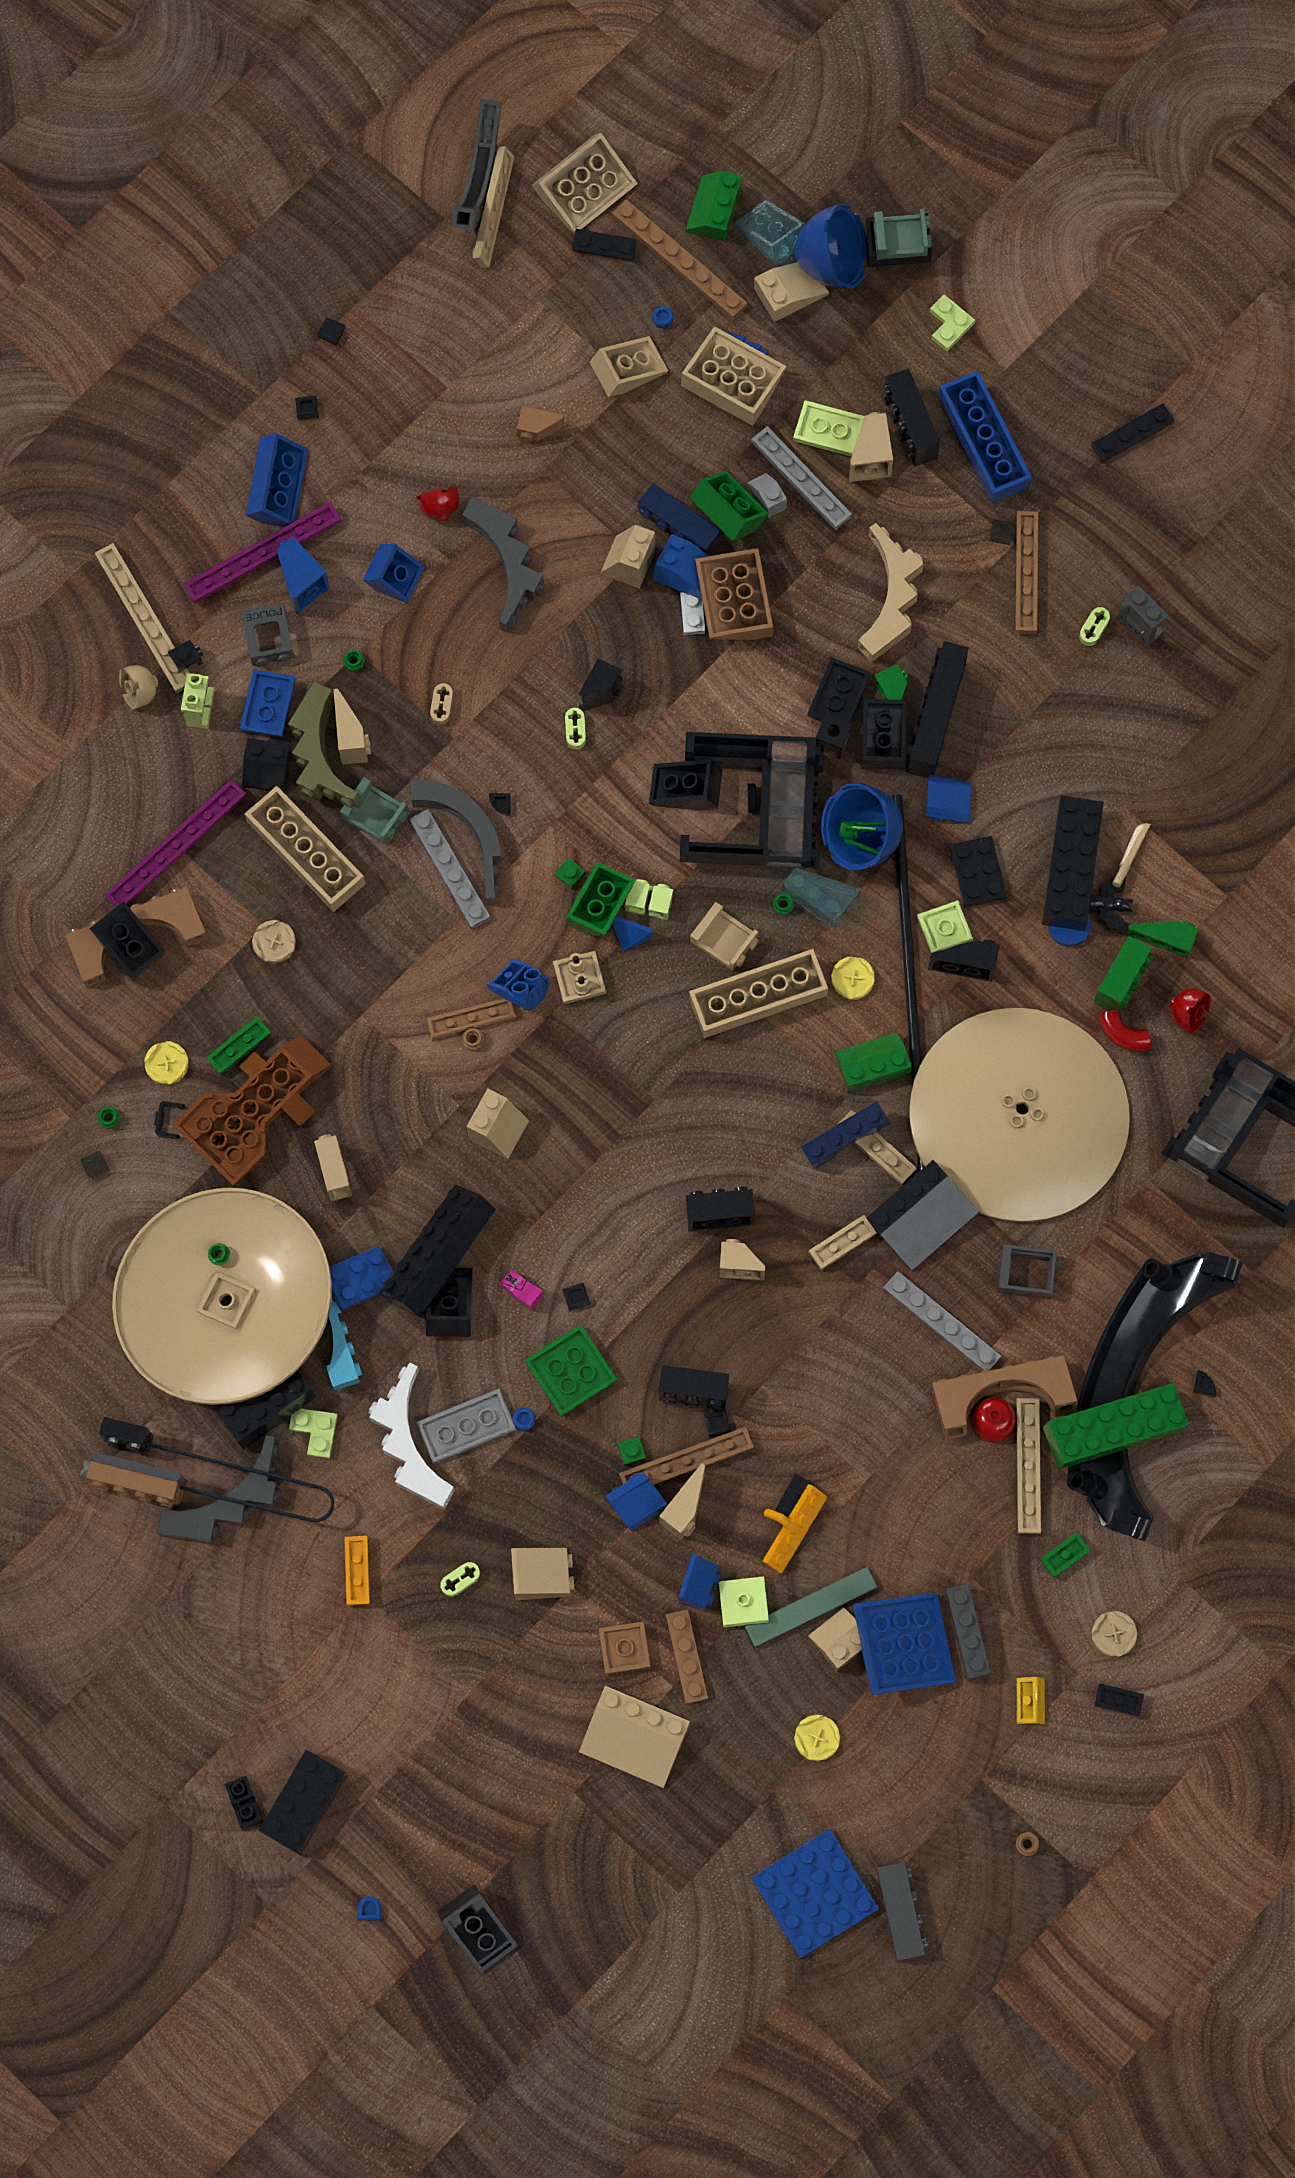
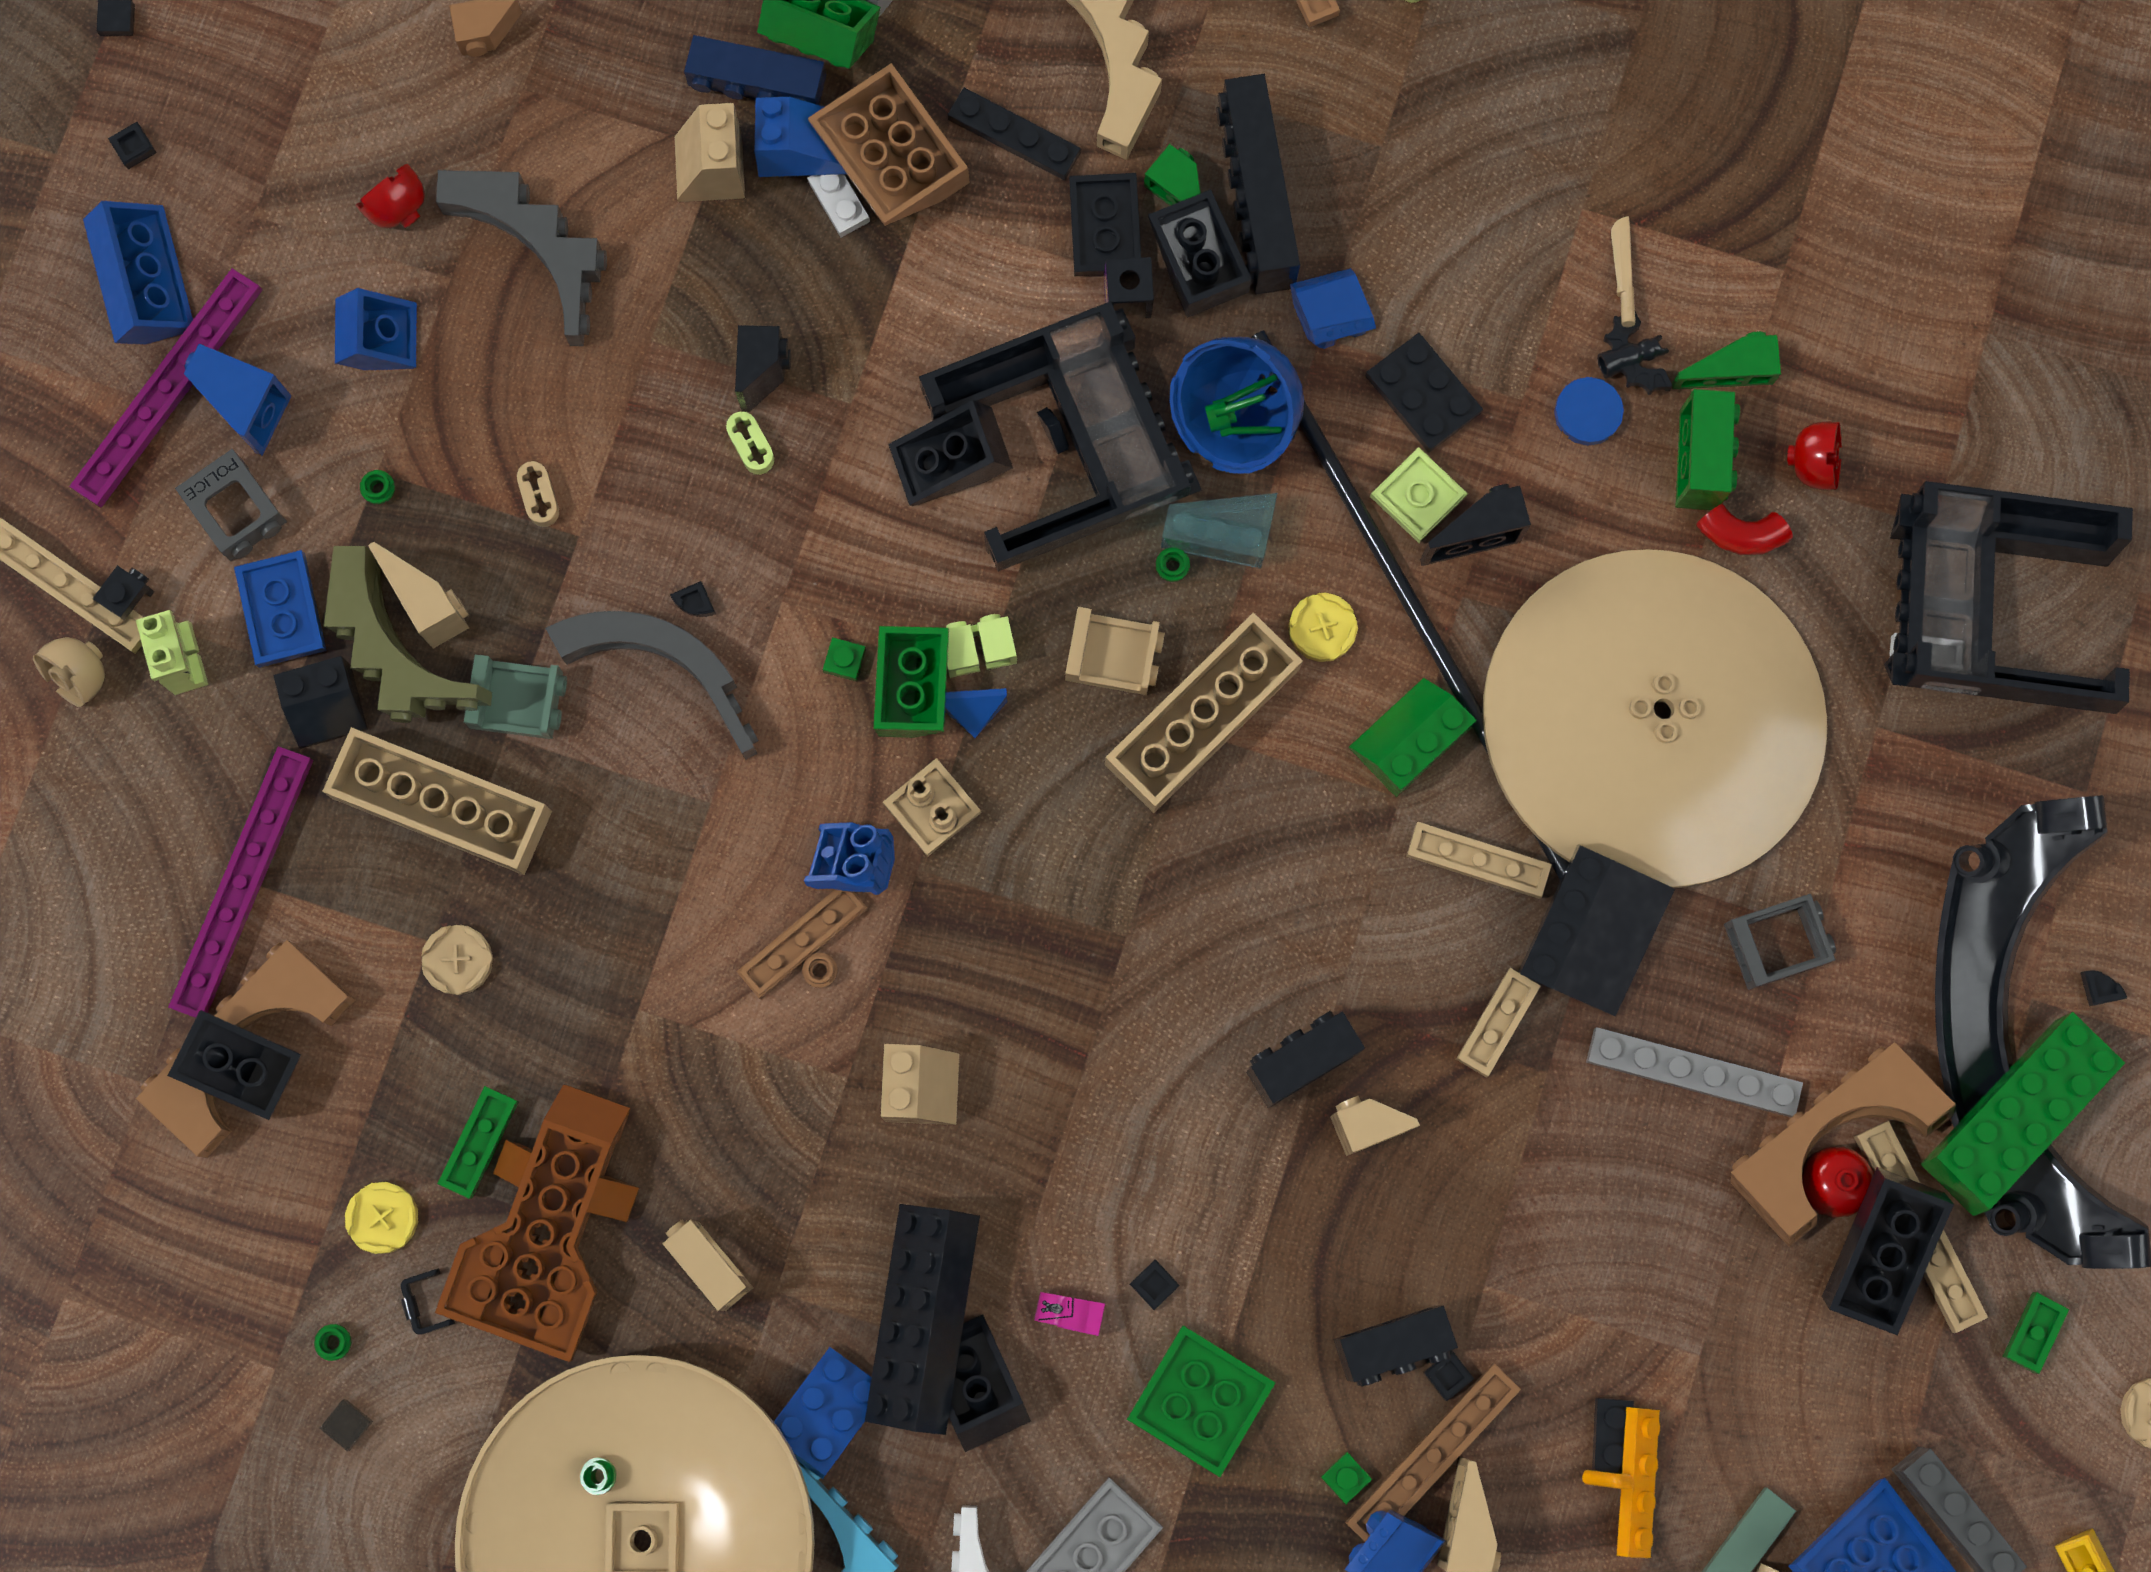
camera: 30 degrees left, 5 degrees up
(449, 869) = (665, 732): light grey plate -> none
(524, 1419) = (1166, 1506): blue tile -> none
(812, 619) = (1014, 133): none -> black plate
(831, 1142) = (1430, 864): dark blue arch -> none
(998, 1465) = (1887, 1251): none -> black brick
(1072, 863) = (1554, 320): black brick -> none

